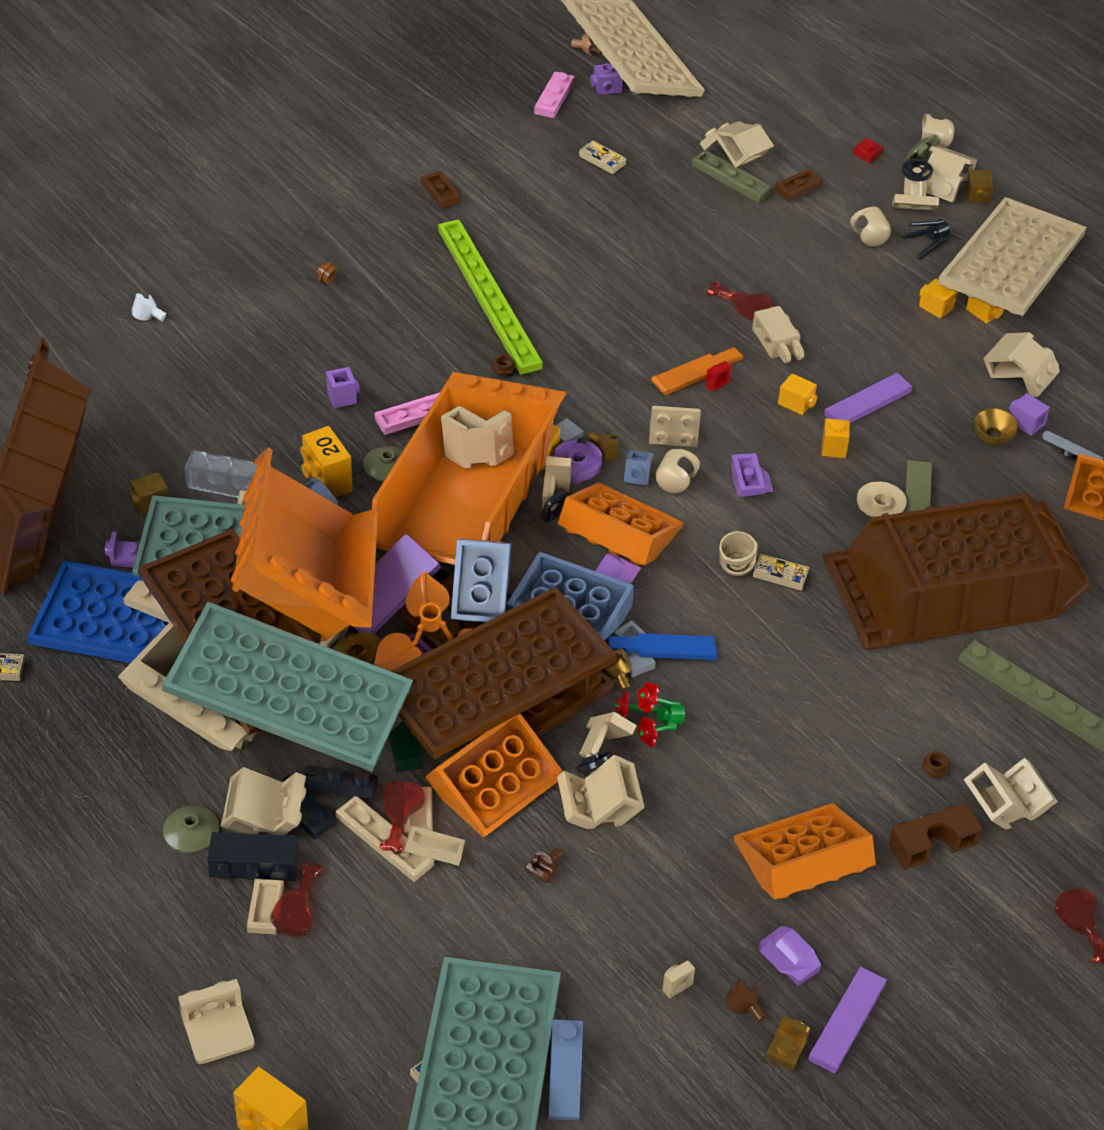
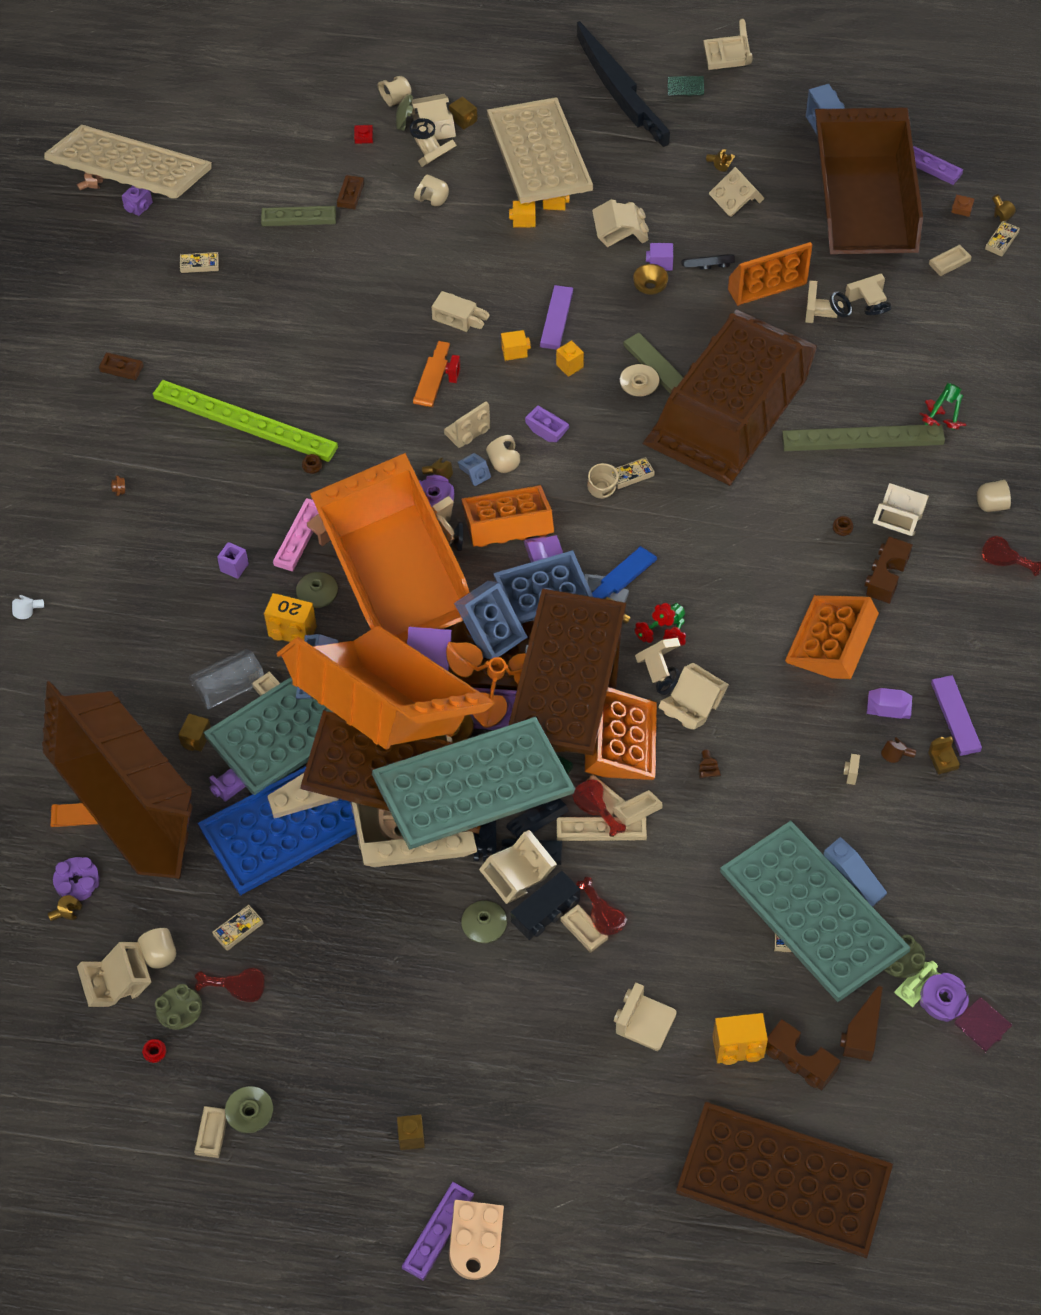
camera: 40 degrees left, 10 degrees up
(280, 759) = (485, 840): none -> black hinge
(475, 439) = (371, 530): tan piece -> none
(554, 94) = (111, 237): bright pink plate -> none
(740, 141) = (283, 184): tan piece -> none
(744, 303) = (416, 303): clear red piece -> none
(937, 231) = (470, 166): black plant -> none

